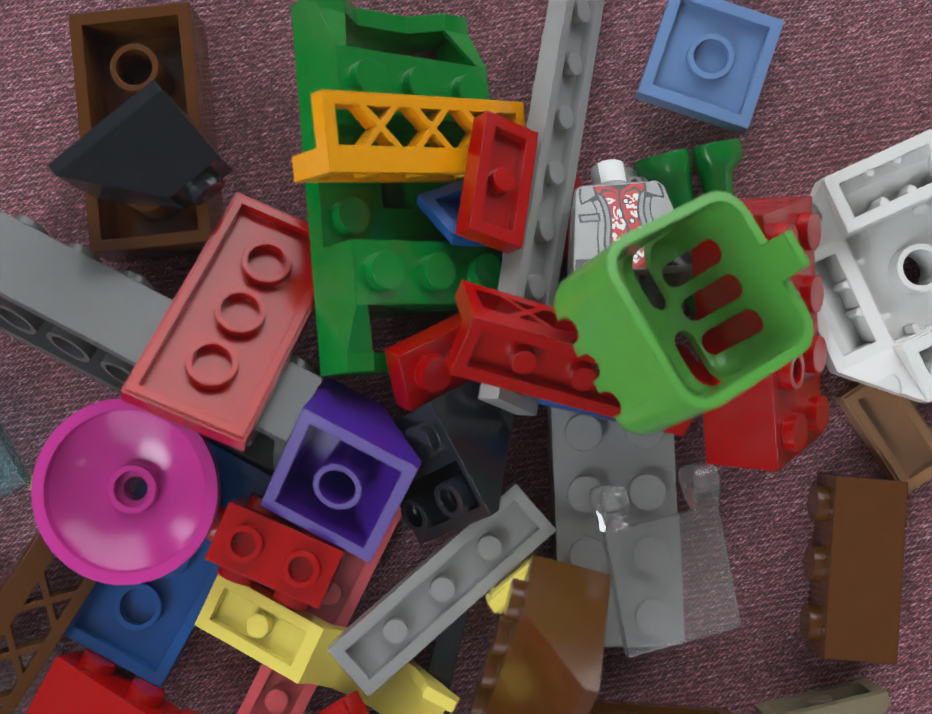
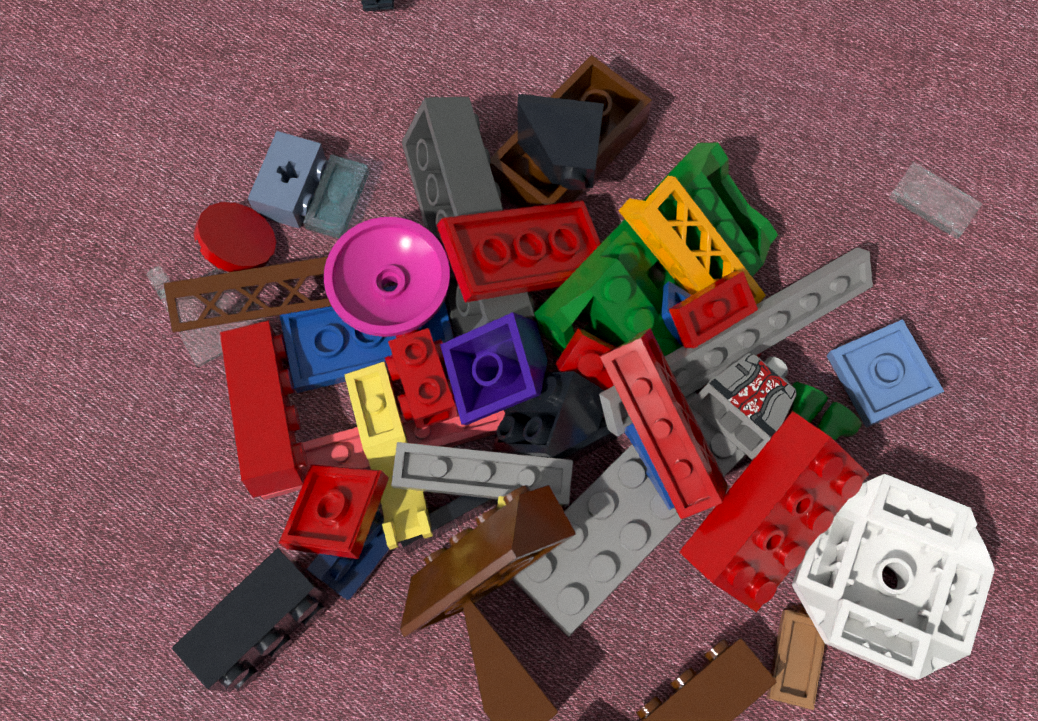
camera: 45 degrees right, 15 degrees down
(638, 341) = (692, 436): bright green piece -> none
(670, 570) = (604, 587): clear flag -> none

